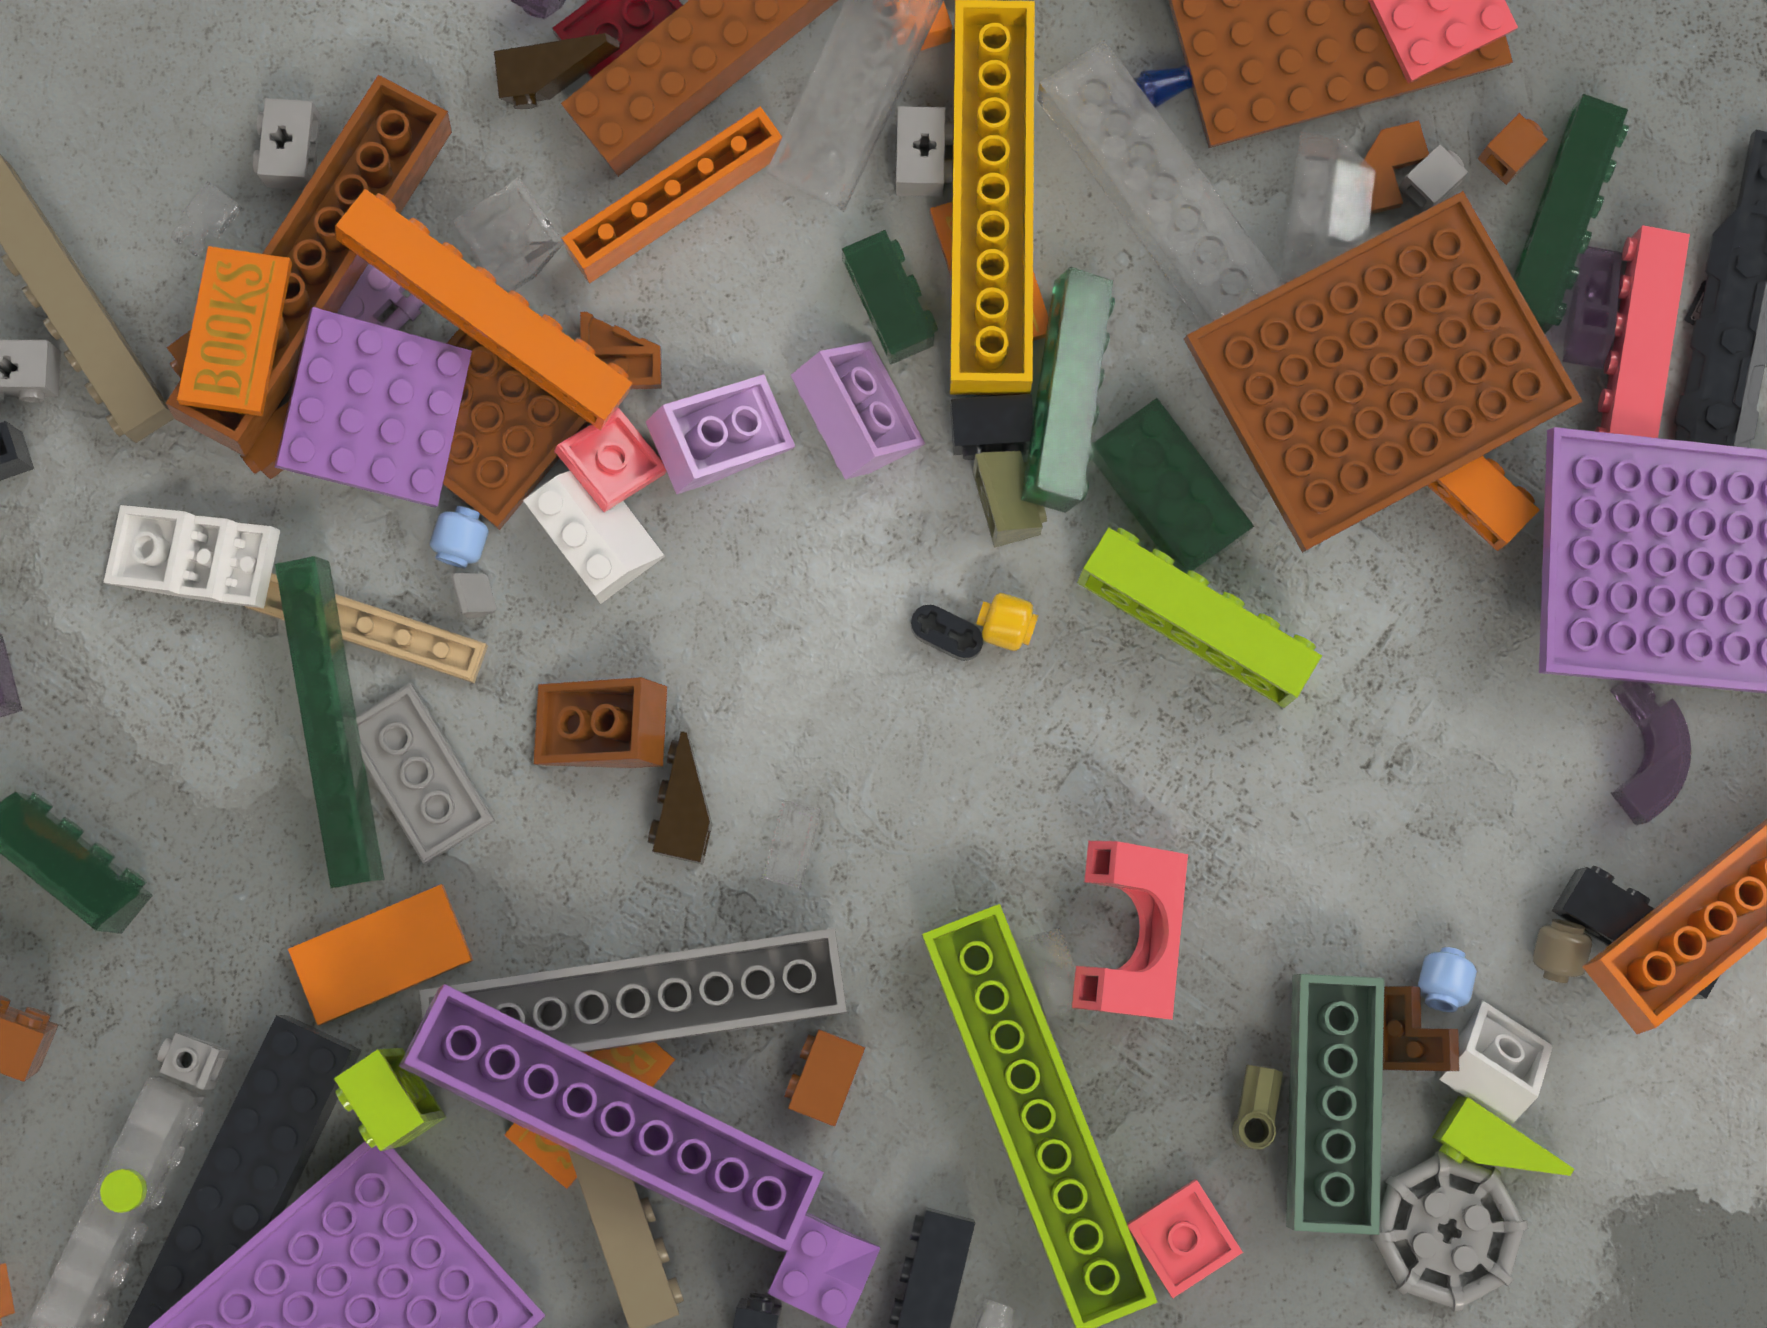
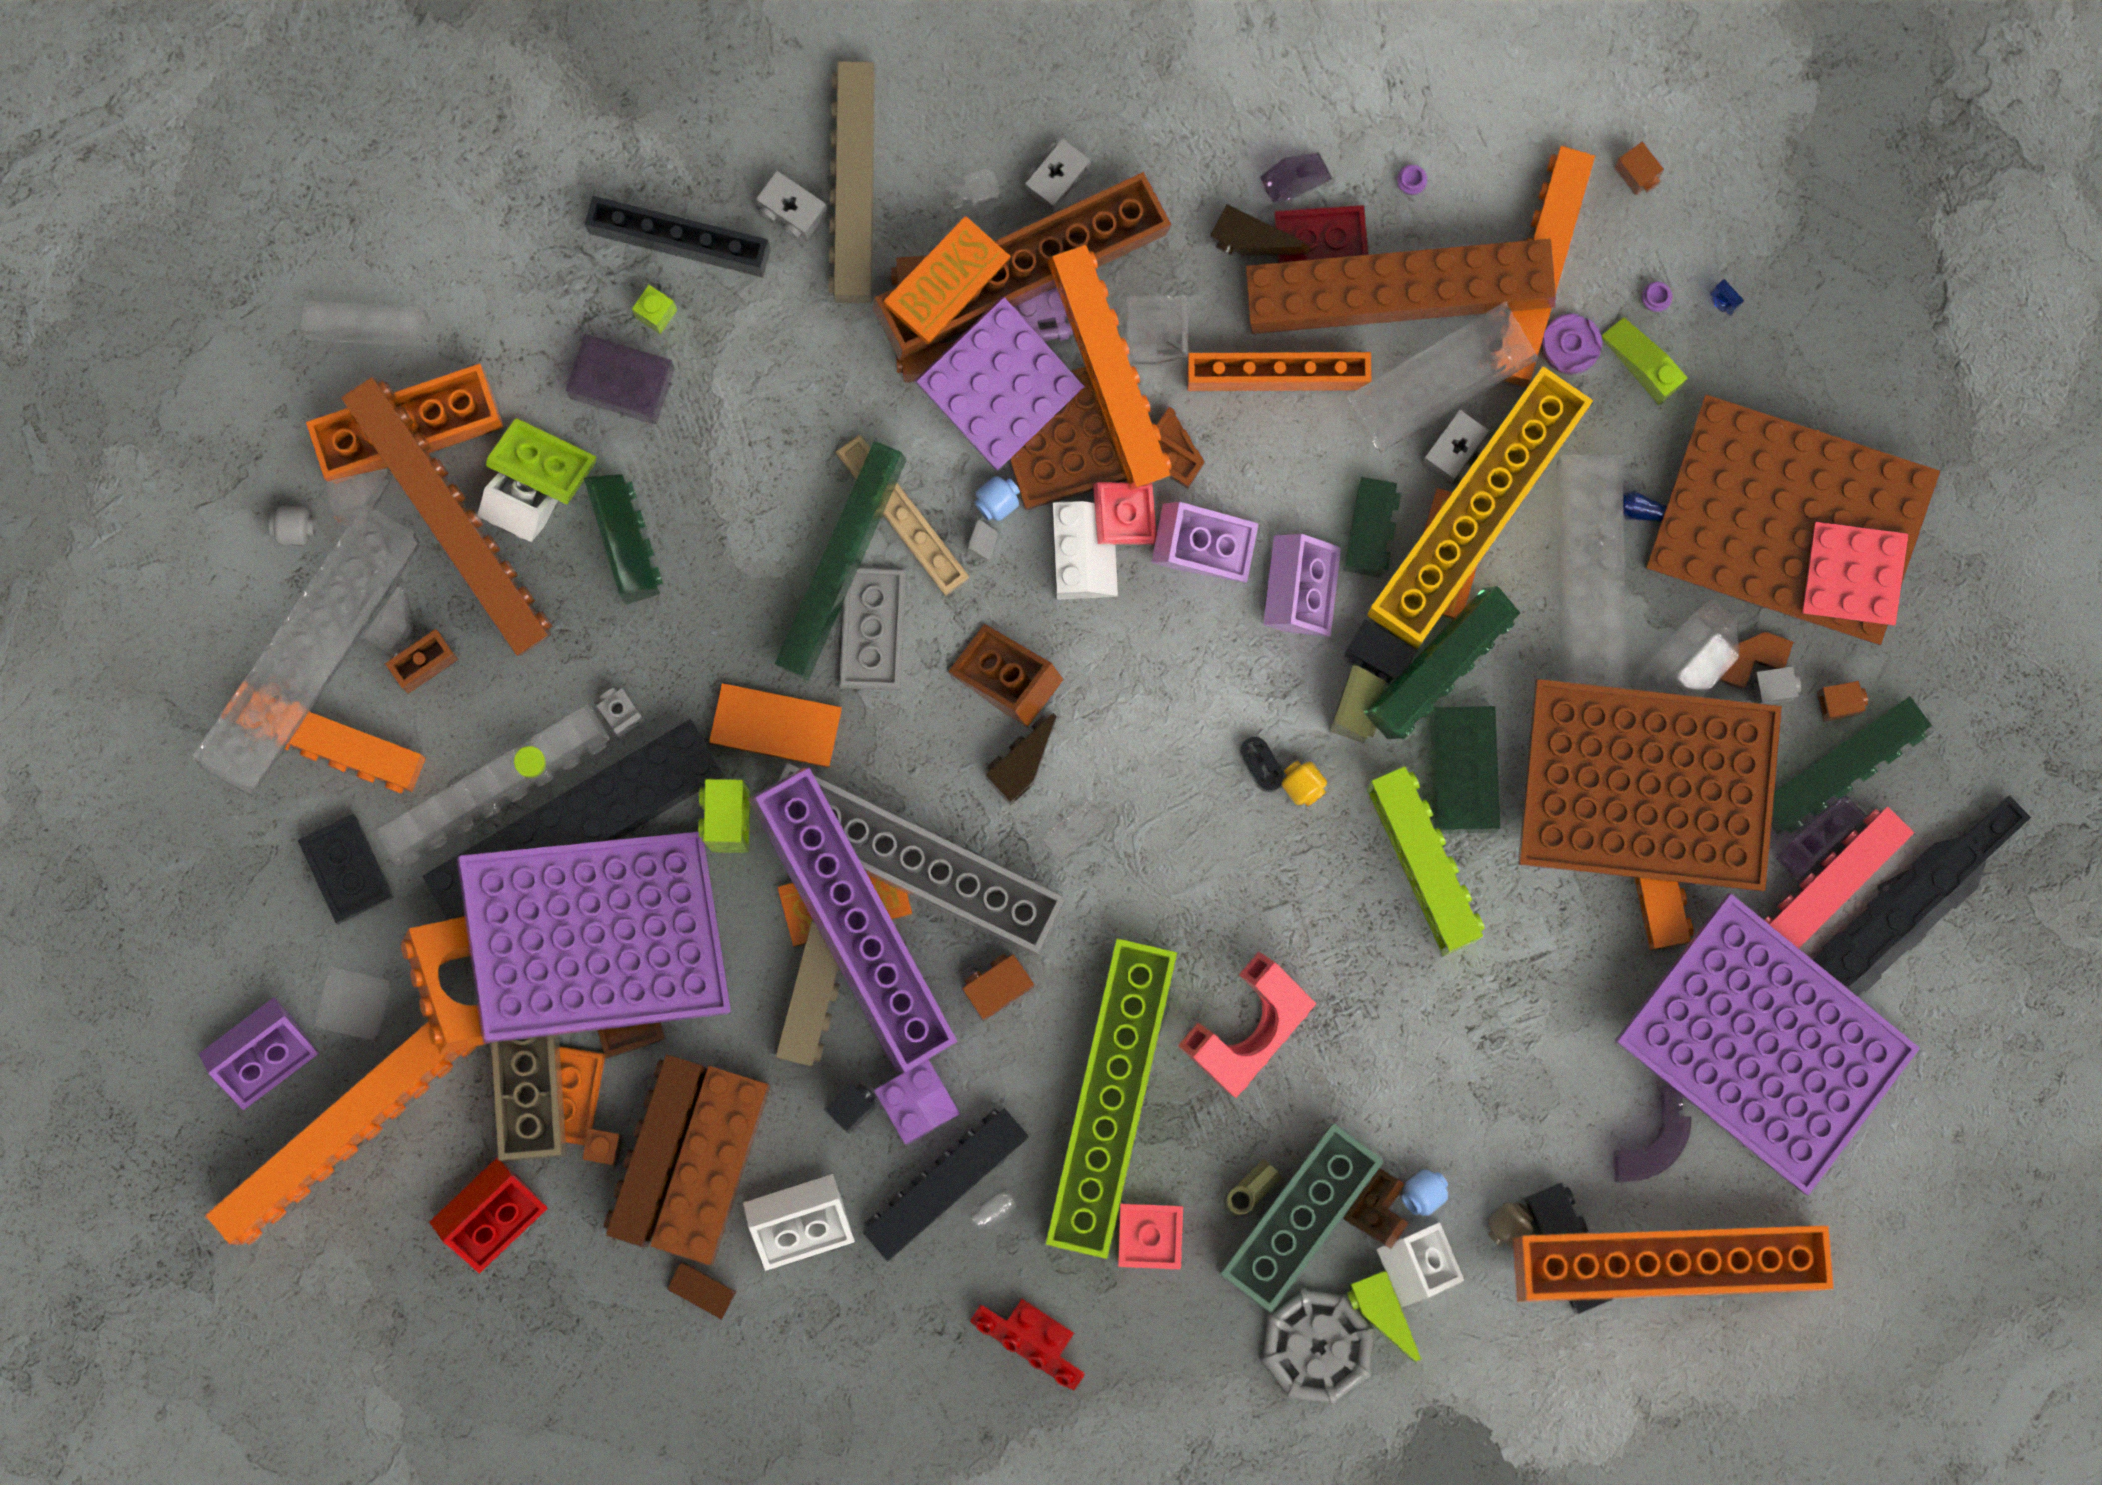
camera: 35 degrees right, 0 degrees up
(192, 556) = (824, 399): white slope -> none

